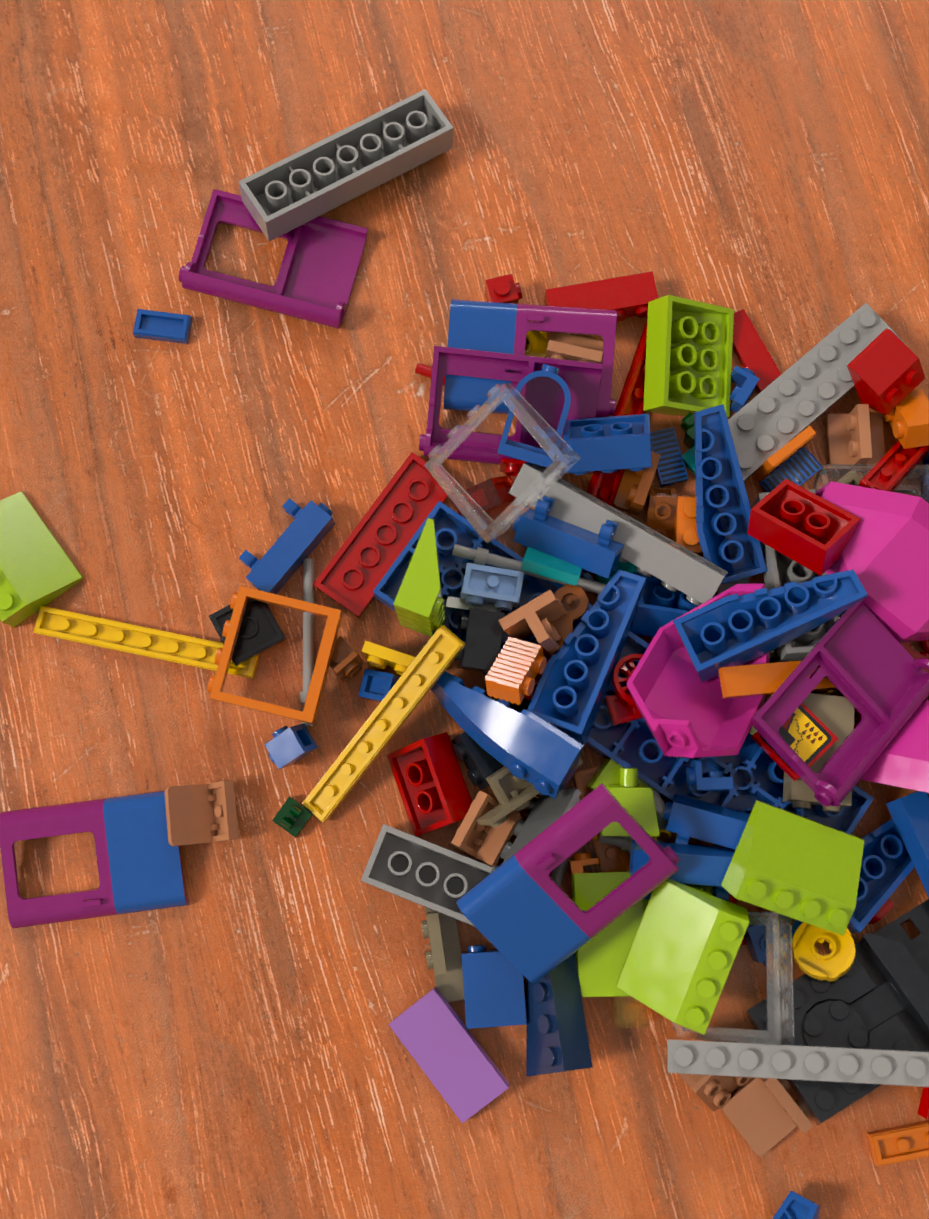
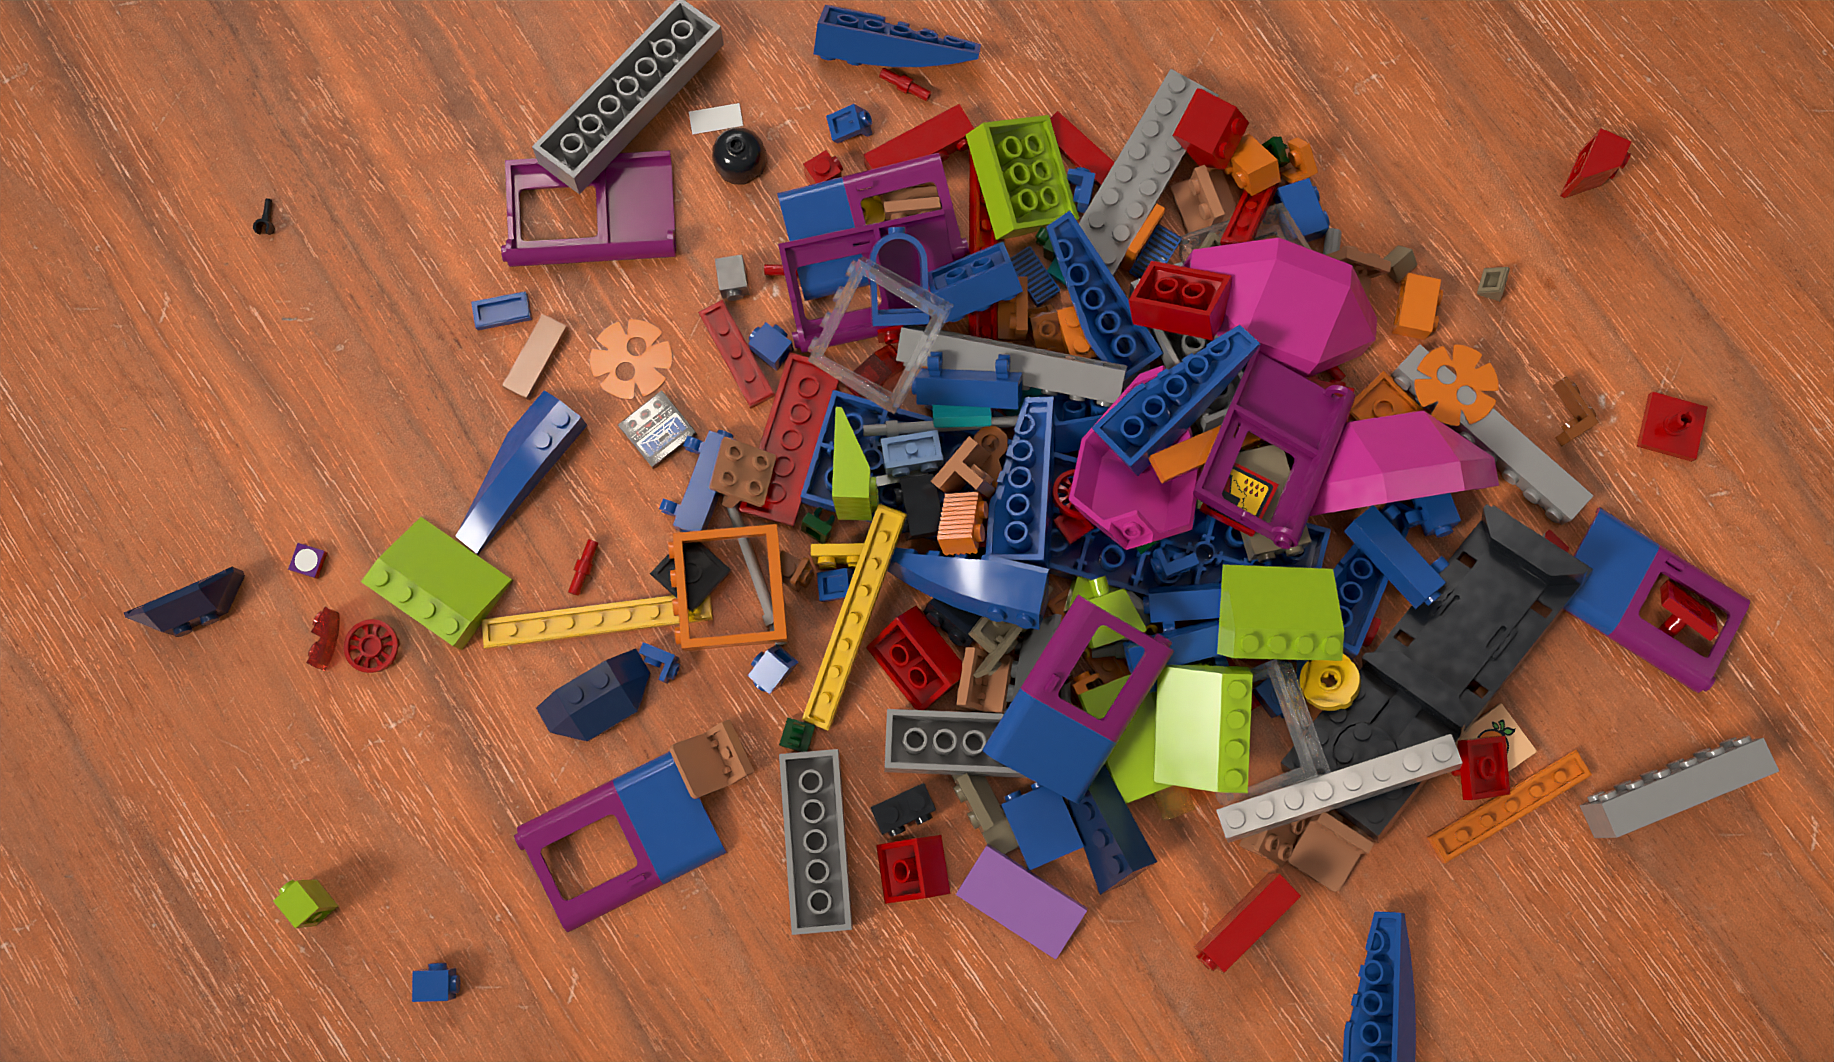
camera: 20 degrees left, 0 degrees up
(120, 716) = (597, 698): none -> dark blue wedge
(126, 475) = (519, 466): none -> blue wedge
(150, 589) = (583, 567): none -> red bar
(177, 378) = (535, 357): none -> tile
(188, 696) = (656, 657): none -> blue bracket
(264, 483) = (657, 429): none -> tile
(271, 928) = (815, 842): none -> light grey brick
(272, 431) = (645, 375): none -> piece
(326, 550) = (742, 473): none -> nougat bracket
(356, 986) = (913, 869): none -> red slope
(363, 437) = (736, 354): none -> red tile
(366, 924) = (902, 809): none -> black brick
(379, 626) = (817, 528): none -> dark green tile
(383, 364) = (732, 277): none -> flat silver brick
(397, 439) = (770, 344): none -> blue brick
(421, 214) = (715, 118): none -> white sticker
(430, 254) = (739, 155): none -> black cylinder
(543, 257) = (849, 123): none -> blue bracket
(589, 187) = (871, 41): none -> blue wedge
(608, 238) = (905, 84): none -> red bar
(659, 1158) = (1246, 922): none -> red brick

